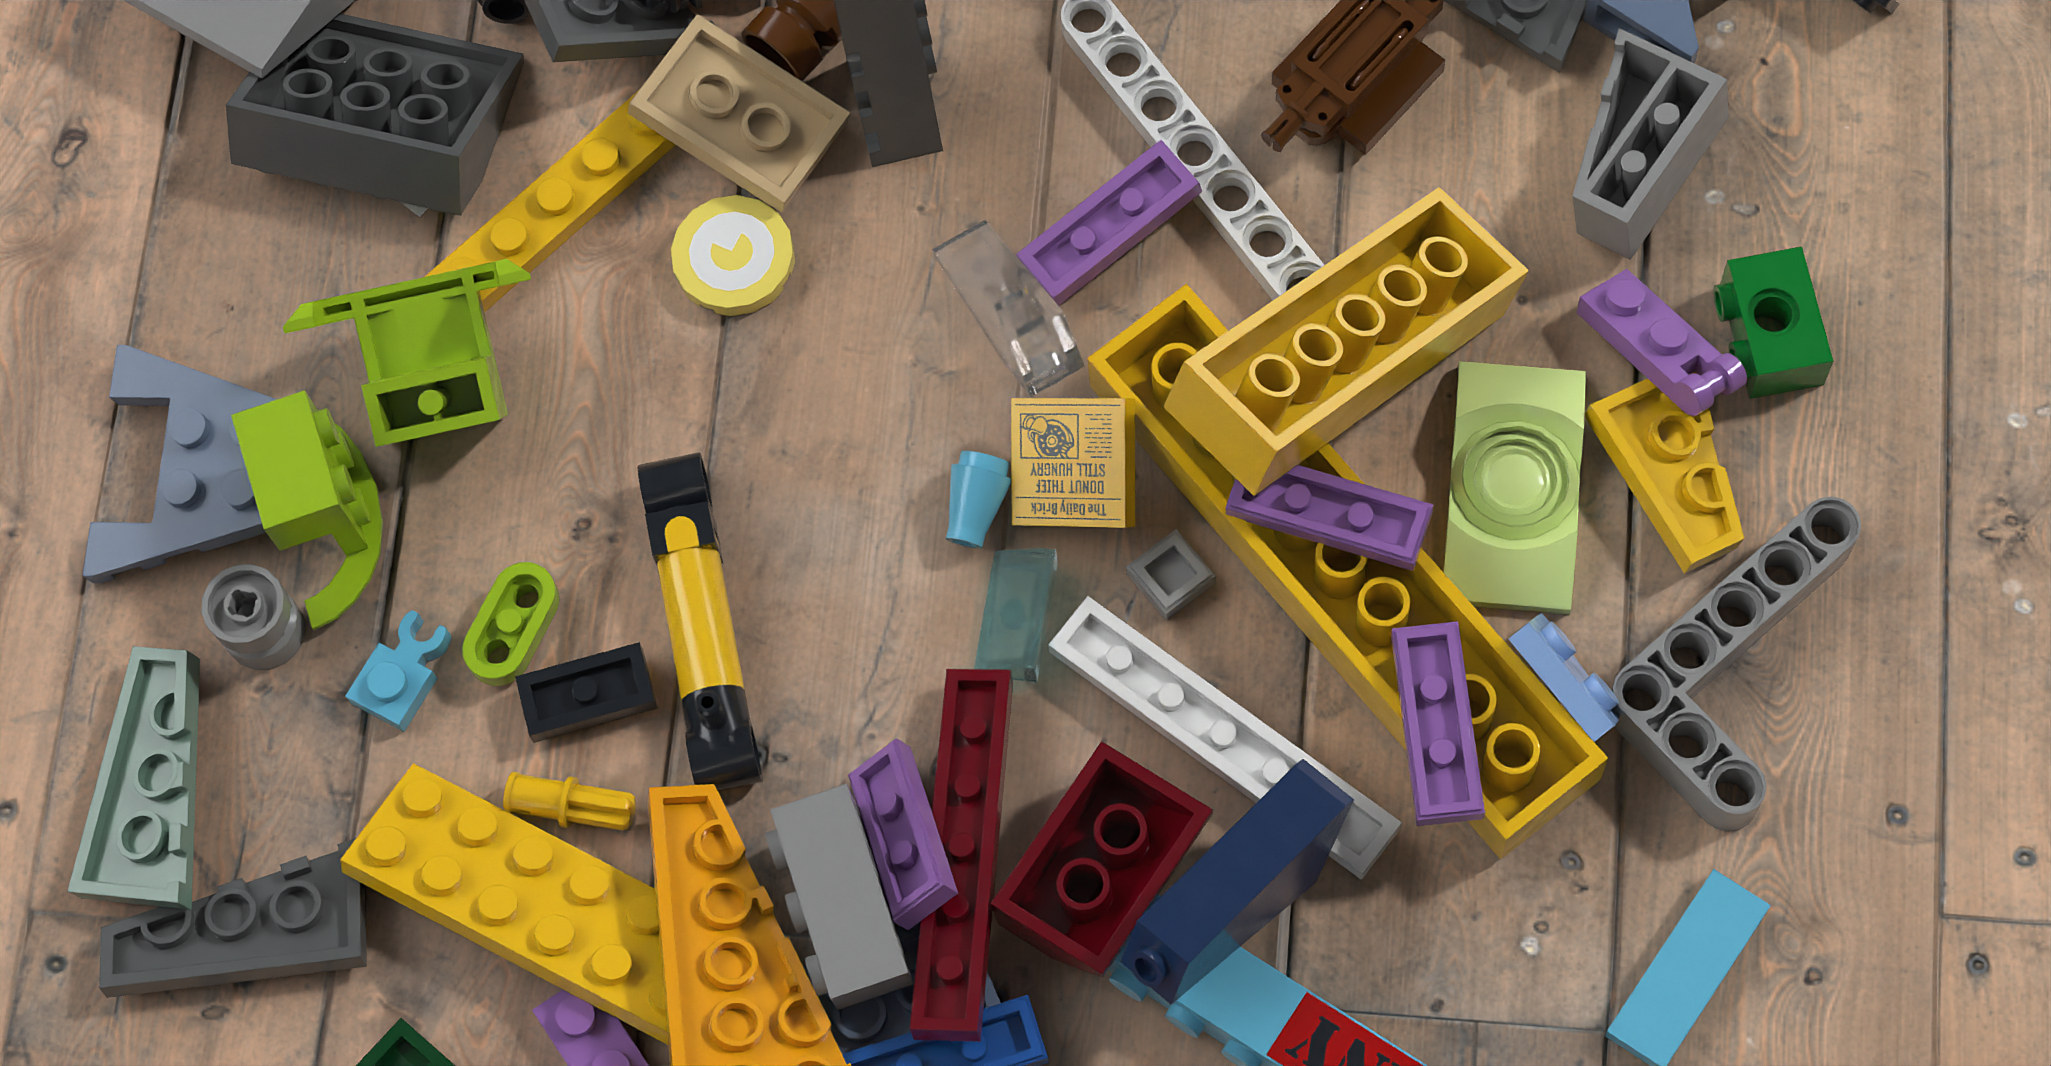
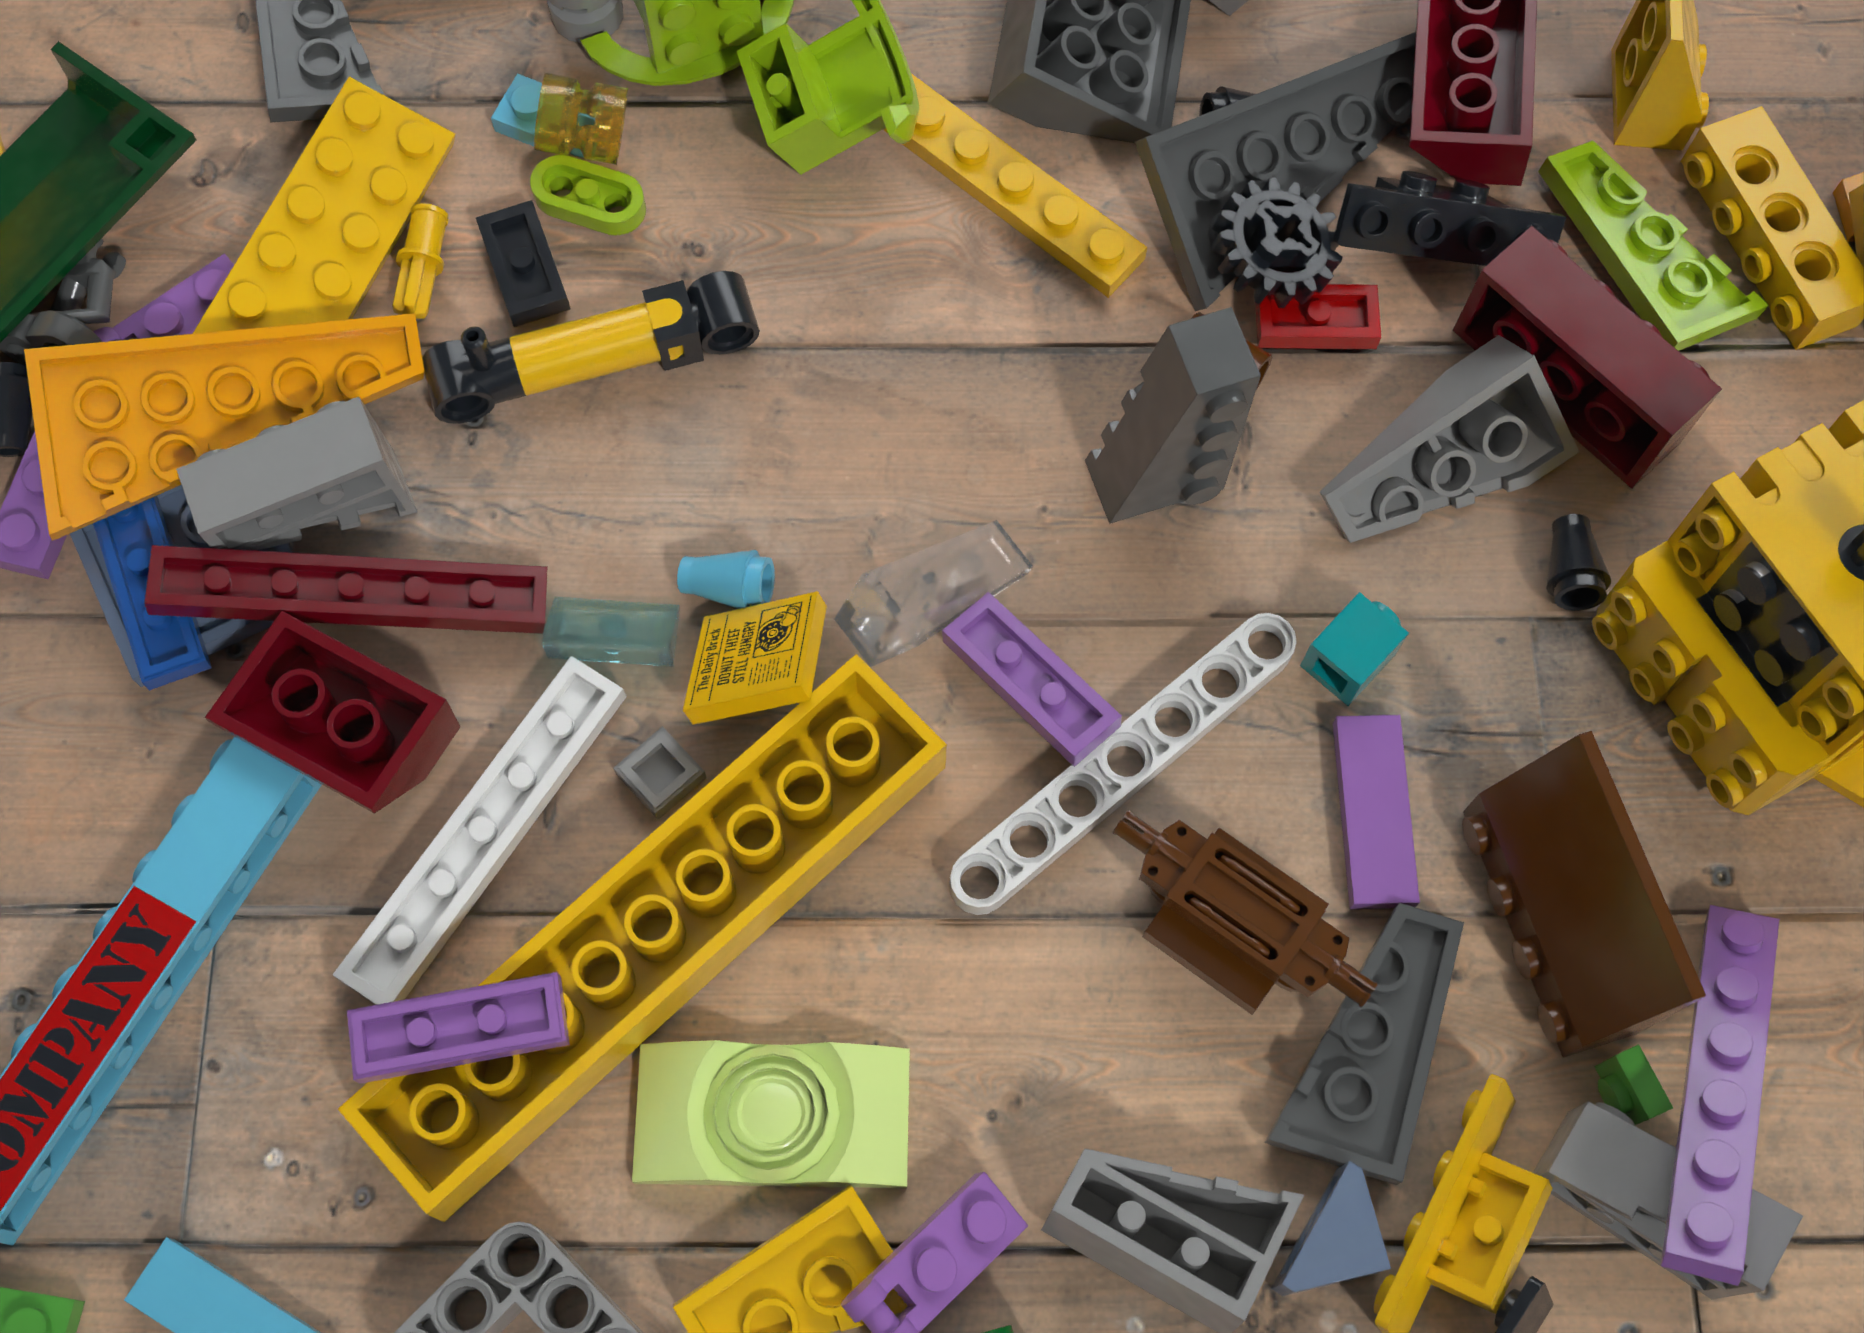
camera: 75 degrees right, 0 degrees up
(434, 611) = (559, 117): none -> clear yellow wheel
(732, 255) = (974, 342): light yellow tile -> none
(738, 113) = (1111, 318): tan plate -> none
(902, 834) = (365, 533): medium lavender tile -> none
(1239, 883) = (284, 833): dark blue slope -> none
(1338, 514) = (693, 904): medium lavender tile -> none
(1344, 340) = (884, 906): yellow brick -> none
(1553, 660) = (535, 1165): light blue wing -> none

